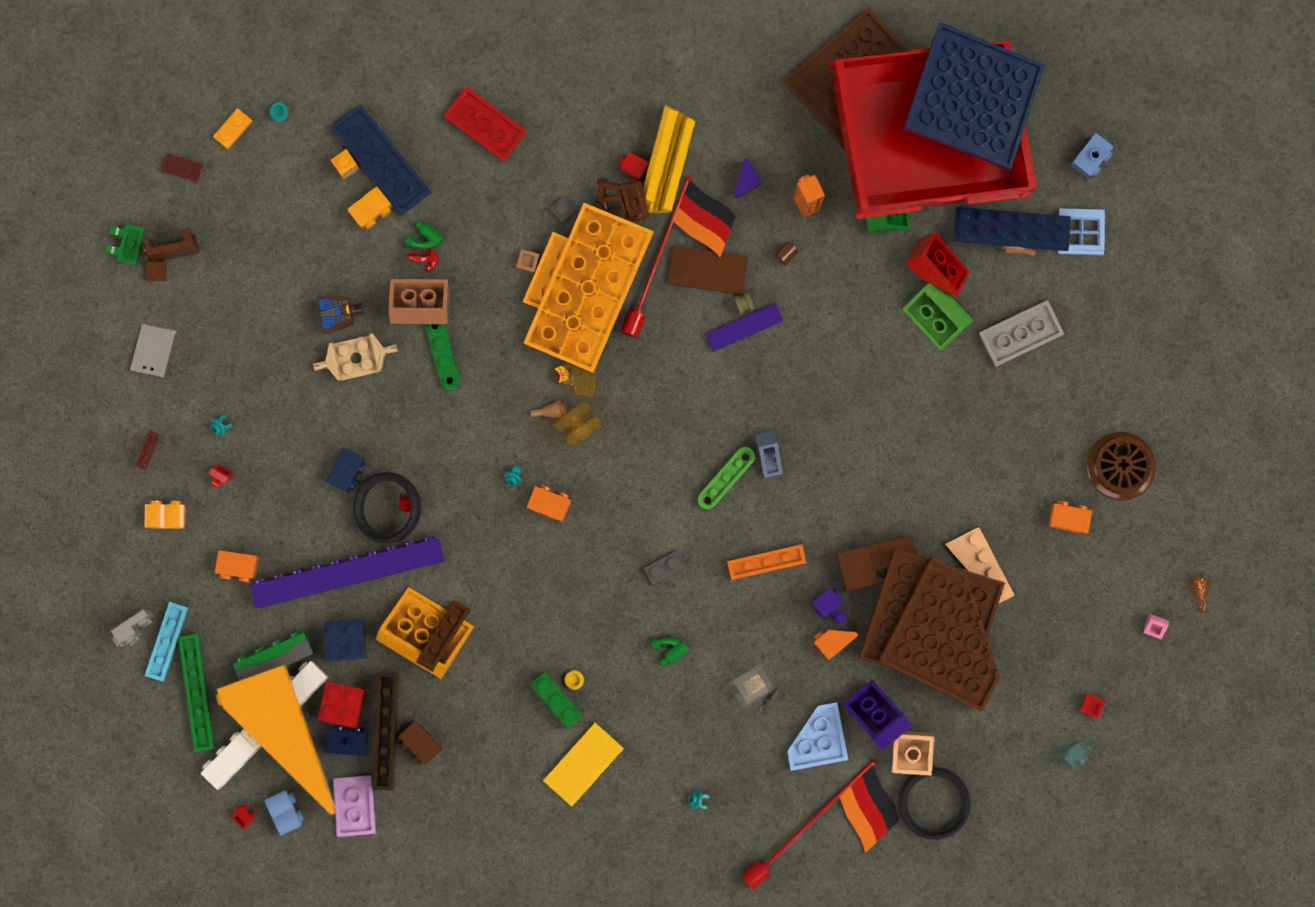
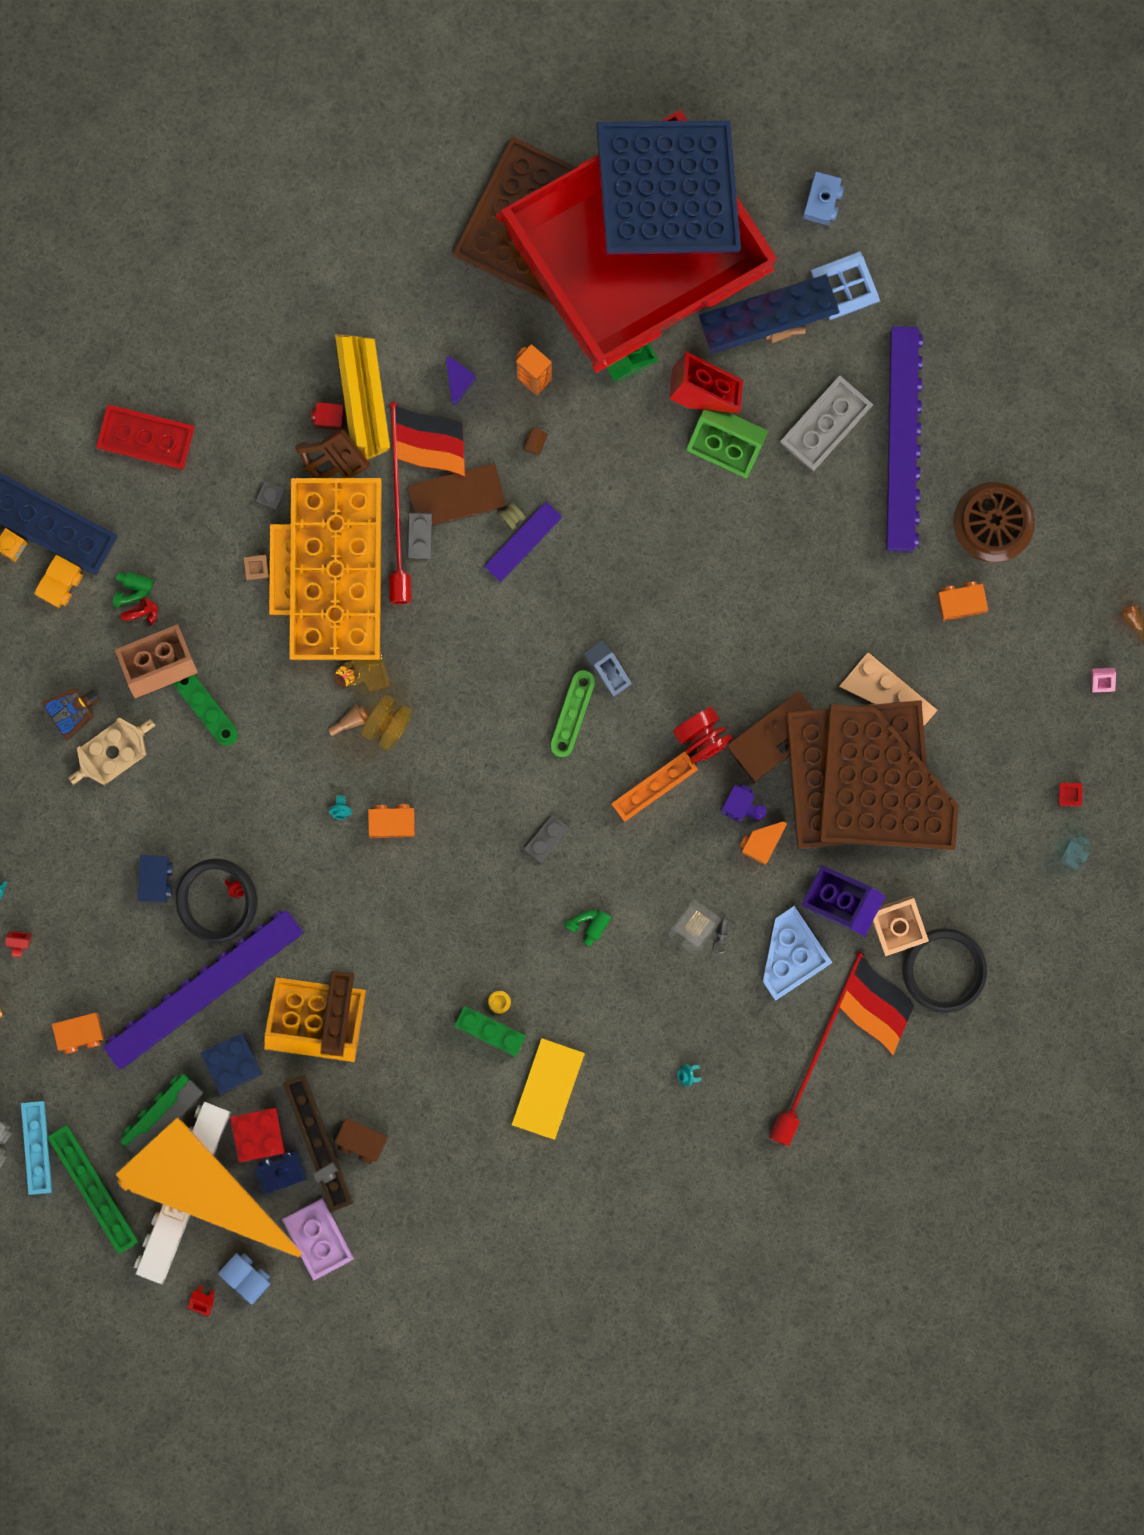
camera: 25 degrees left, 0 degrees up
(380, 759) = (326, 1174): none -> dark grey plate
(666, 288) = (420, 535): none -> dark grey plate
(821, 538) = (702, 735): none -> red wheel
(1076, 371) = (903, 439): none -> dark purple brick

